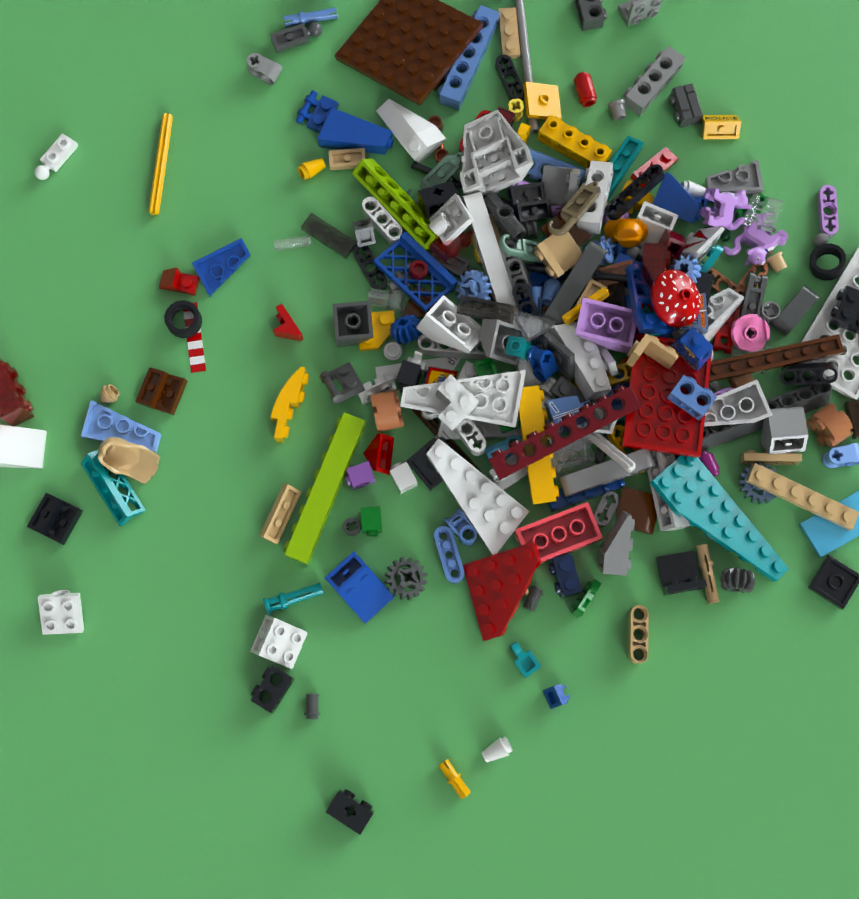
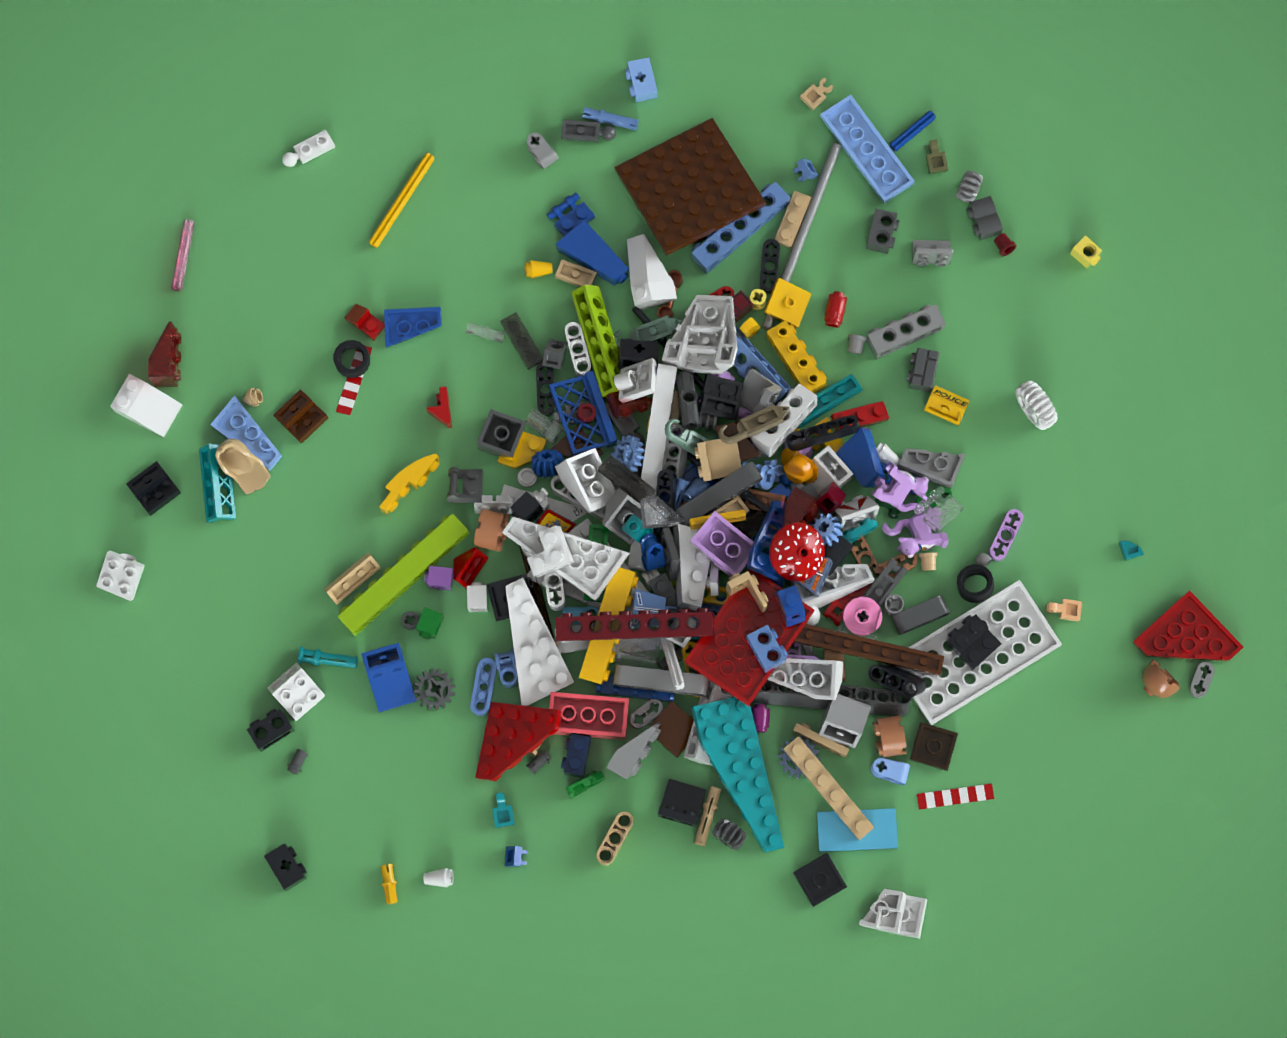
camera: 30 degrees right, 0 degrees up
(797, 90) = (1036, 405): none -> white gear

